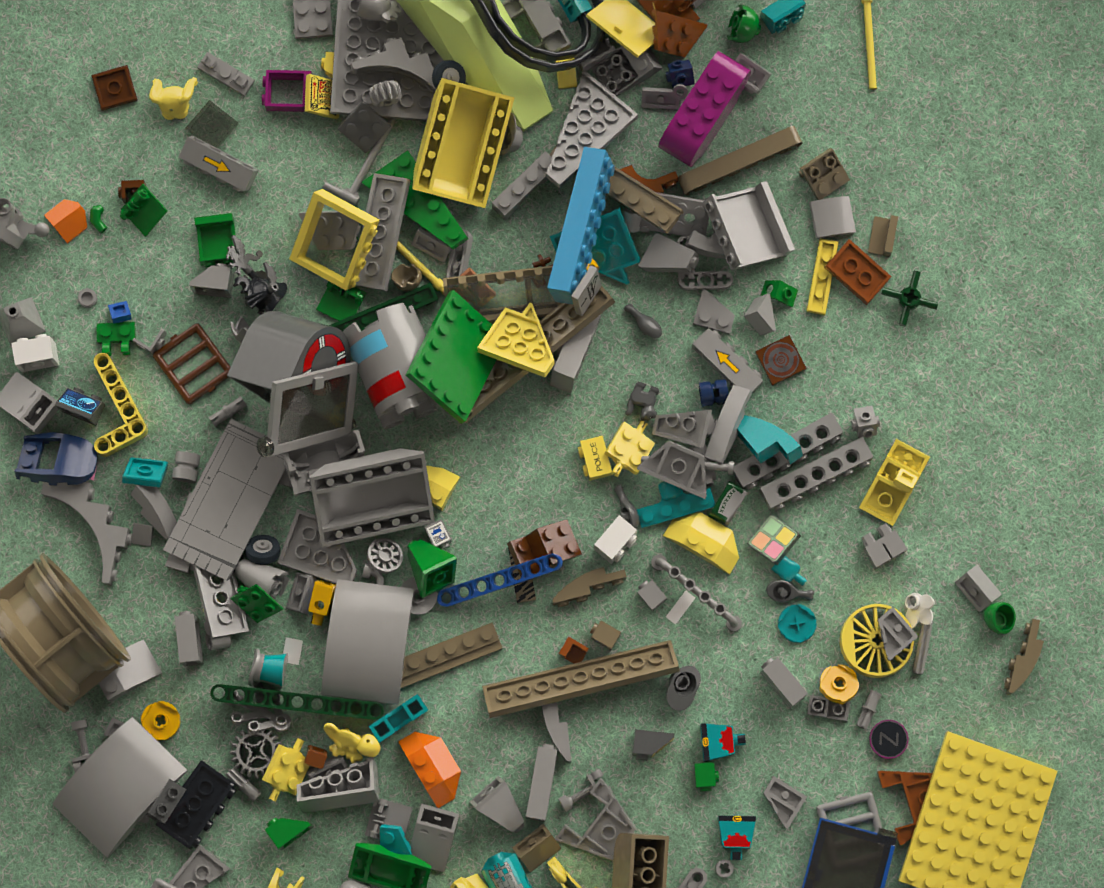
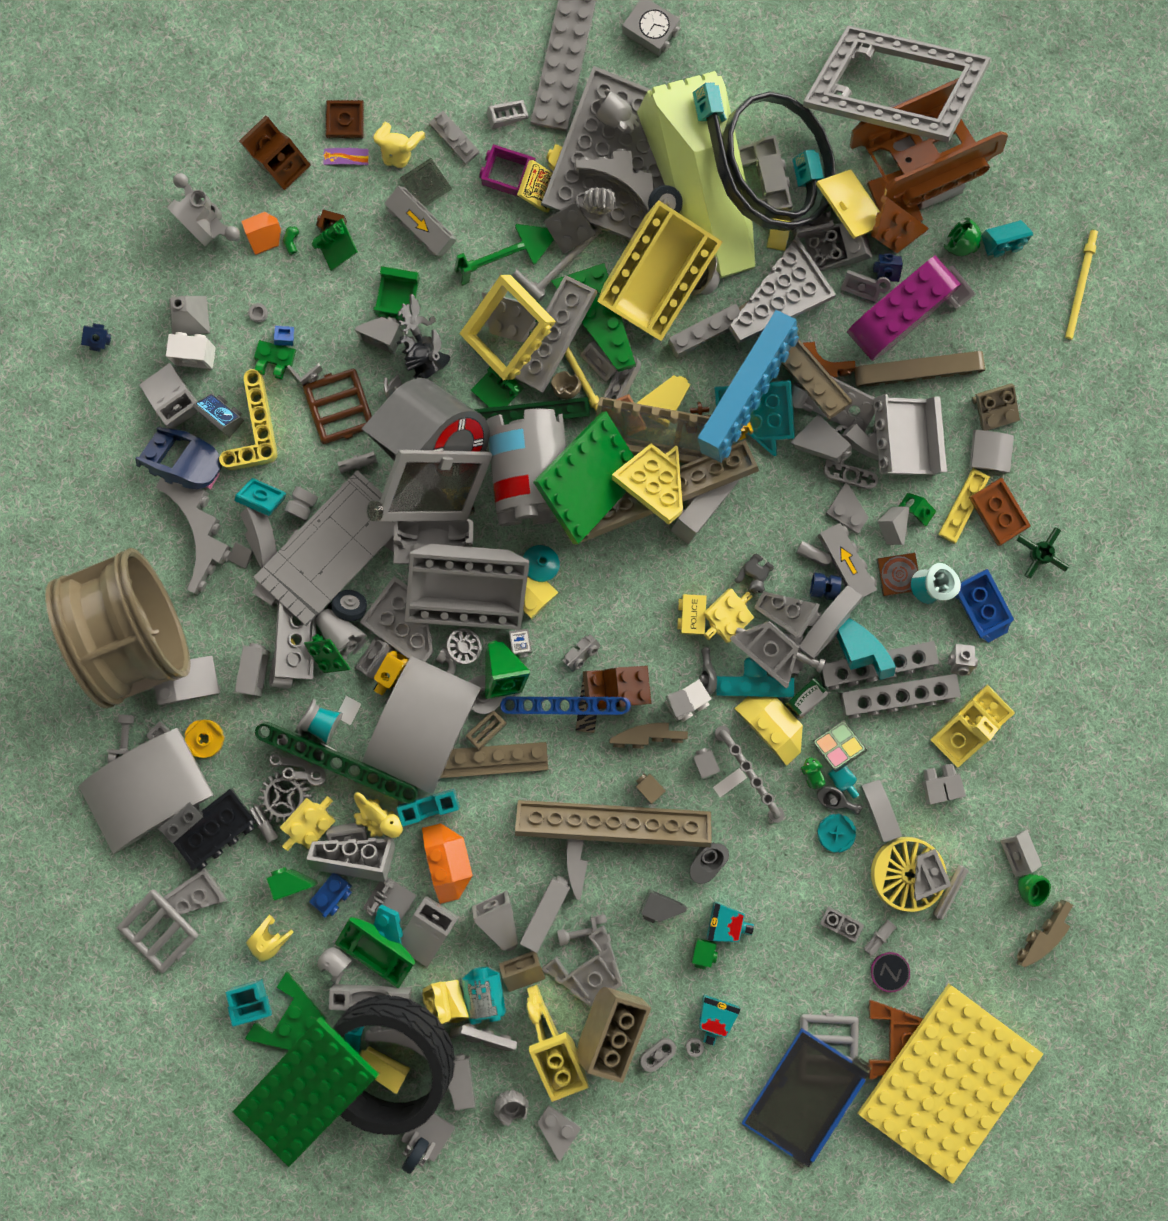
camera: 15 degrees right, 5 degrees up
(58, 140) = (274, 152): none -> reddish brown bracket
(126, 123) = (346, 156): none -> medium lavender sticker
(261, 48) = (502, 121): none -> light grey slope
(315, 756) = (339, 819): dark orange slope -> none
(329, 832) = (330, 894): none -> blue bracket
(333, 149) = (533, 240): none -> green piece
(423, 643) = (497, 719): none -> dark tan tile
(436, 461) = (539, 571): none -> teal dish
(496, 535) = (588, 647): none -> light grey hinge
(508, 256) = (667, 395): none -> light yellow slope
(573, 651) = (614, 793): dark orange panel -> none
(586, 290) = (734, 451): light grey tile -> none
(607, 542) = (679, 703): none -> light grey panel
(645, 323) = (780, 499): dark grey piece -> none
(693, 366) = (812, 553): none -> light grey bar
(756, 572) = (812, 771): none -> green animal
(783, 682) = (806, 888): light grey brick -> none
(784, 800) = (771, 1000): light grey wing -> none
(816, 358) = (935, 584): none -> light aqua hat
(832, 589) = (881, 811): none -> light grey slope
(839, 694) = (851, 912): yellow plate -> none
(870, 365) = (985, 606): none -> blue slope
(883, 235) = (1035, 484): dark tan panel -> none
(920, 610) = (961, 859): white plate -> none

